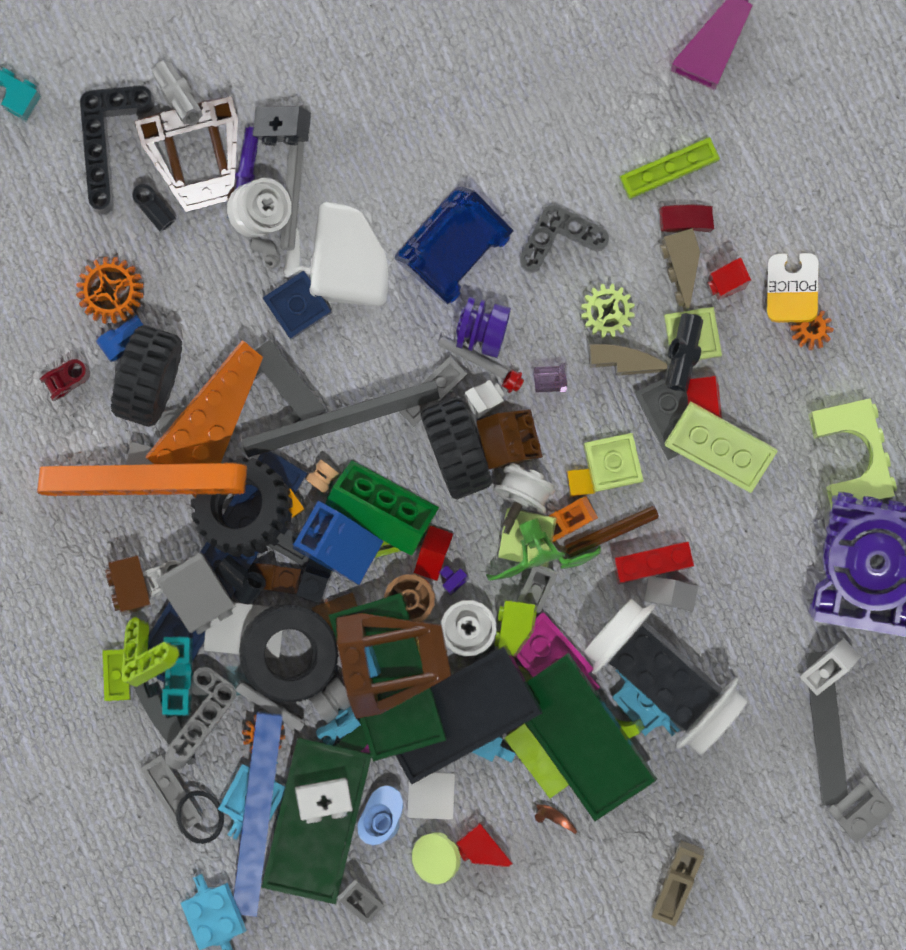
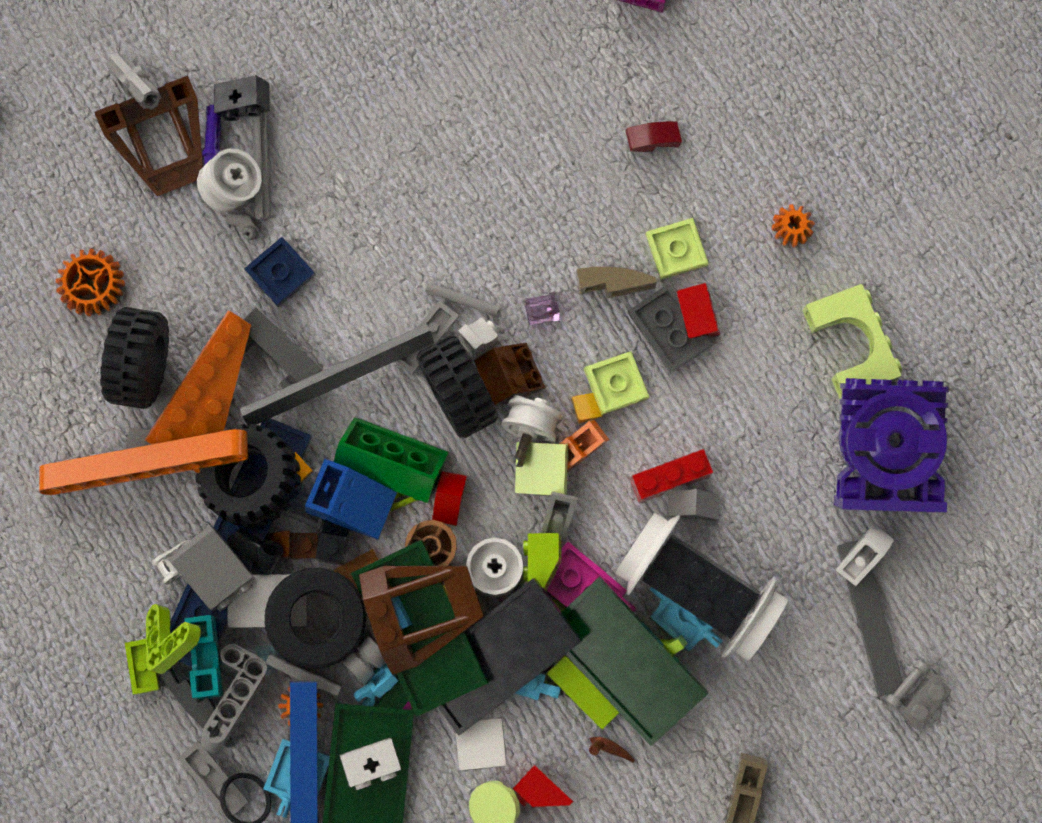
camera: 10 degrees left, 5 degrees down
(63, 379) = (54, 376): dark red piece -> none
(100, 139) = (63, 136): black beam -> none
(115, 341) = (97, 330): blue piece -> none
(128, 585) = (143, 571): reddish brown slope -> none
(154, 208) = (124, 196): black piece -> none
(319, 481) = (324, 442): light nougat wheel -> none
(345, 258) = (322, 221): white piece -> none
(381, 816) = (432, 772): light blue piece -> none
(452, 242) = (427, 189): clear blue windscreen -> none
(454, 580) = (474, 522): dark purple tile -> none
(483, 327) = (467, 266): dark purple wheel -> none
(513, 381) = (505, 317): red plate -> none
(534, 538) = (549, 466): bright green plant -> none
(562, 228) = (531, 162): dark grey beam -> none
(598, 305) = (597, 240): yellowish green gear -> none
(611, 531) = (625, 451): reddish brown axle -> none
(669, 168) = (629, 91): lime tile -> none
(683, 258) = (656, 175): dark tan slope -> none
(684, 352) = (671, 264): black piece -> none
(720, 447) = (721, 352): yellowish green tile -> none
(728, 279) = (704, 187): red slope -> none
(792, 295) = (768, 195): piece -> none

